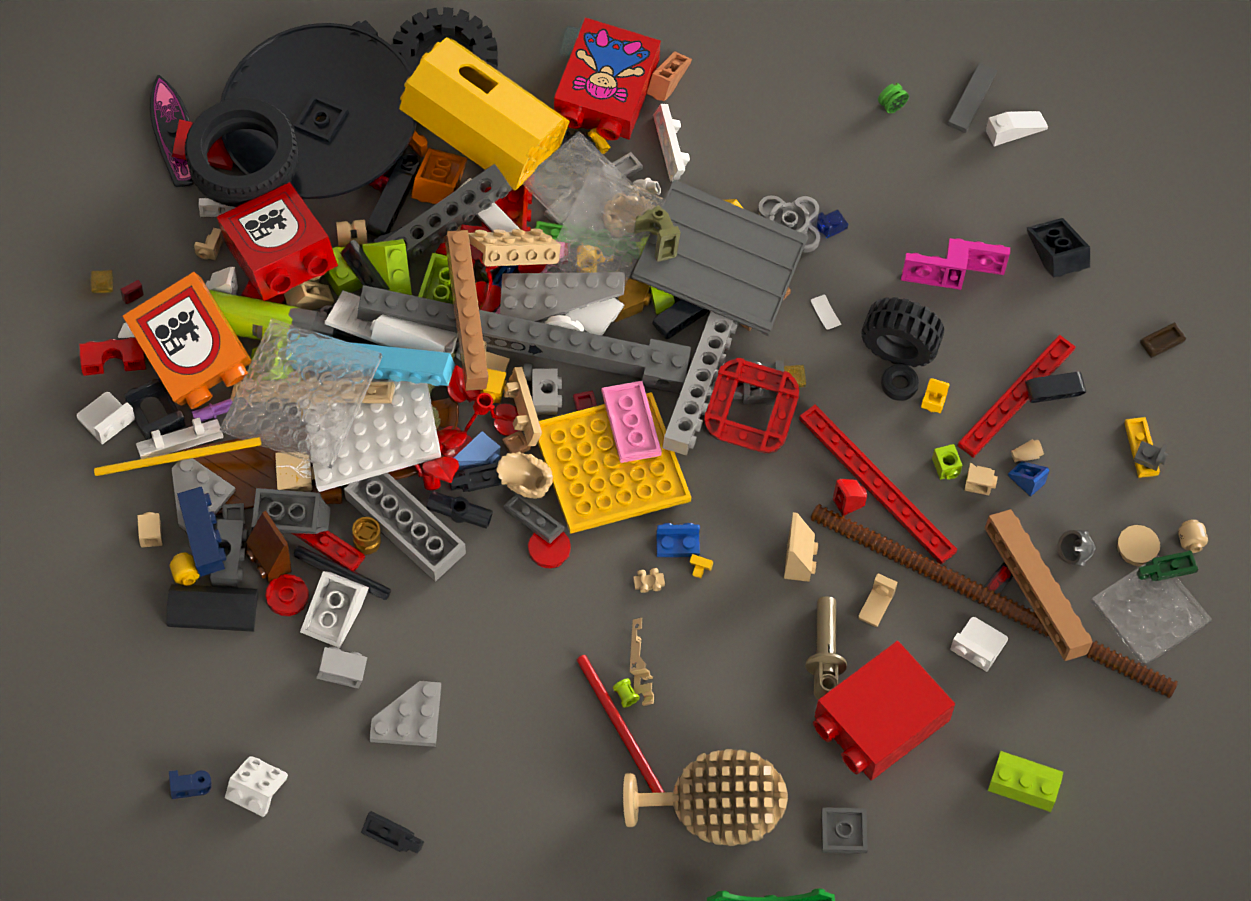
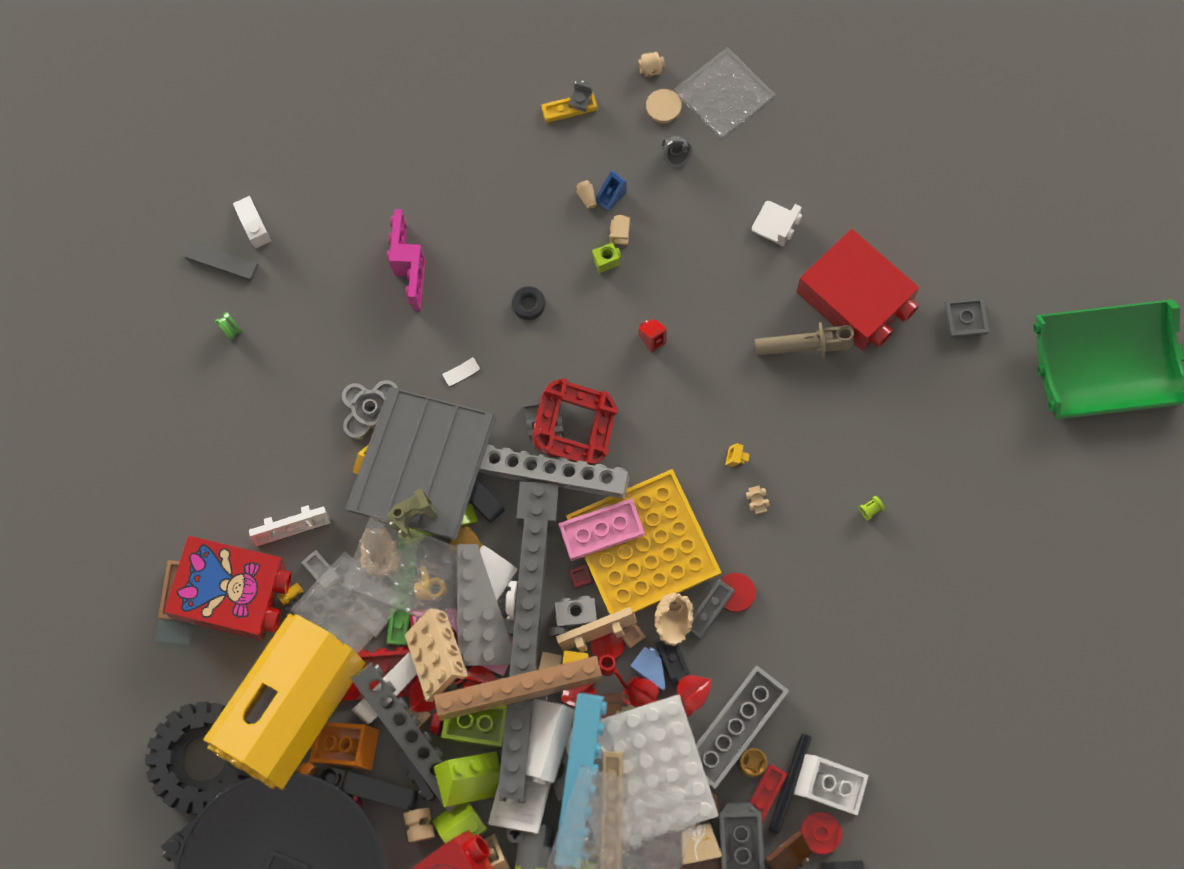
camera: 85 degrees left, 10 degrees up
(255, 785) = (1021, 832): white bracket -> none
(342, 667) = (892, 767): light grey brick -> none
(362, 266) = (468, 802): black tile -> none
(391, 833) = (1045, 699): black hinge -> none
(410, 718) = (926, 698): light grey plate -> none
(471, 514) = (714, 666): black piece -> none
(619, 724) = (904, 509): red piece -> none
(640, 670) = (837, 503): tan piece -> none
(648, 185) = (341, 543): white piece -> none
(668, 76) = (211, 531): nougat slope -> none
(677, 540) = (714, 478): blue bracket -> none
(719, 797) = (973, 411): tan plant -> none
(798, 373) = (533, 389): clear yellow plate -> none
(800, 551) = (716, 372): tan slope -> none
(831, 223) = (367, 373): clear blue bracket -> none
(878, 484) = (633, 314): red plate -> none
(878, 600) = (750, 306): tan bracket -> none
(902, 332) = (490, 294): black tyre -> none
(935, 395) = (542, 271): yellow bracket -> none
(983, 595) = (732, 219): reddish brown piece -> none
(999, 579) = (711, 212): sticker -> none
(1014, 397) = (531, 207): red tile -> none
(1025, 781) = (894, 179): lime slope -> none
(1038, 585) = (720, 175): medium nougat brick -> none
(1055, 387) = (522, 173): black beam -> none
(1059, 247) = (377, 178): black slope -> none
(1163, 340) = (462, 95): dark brown tile -> none
(1168, 567) = (687, 77): dark green hinge -> none

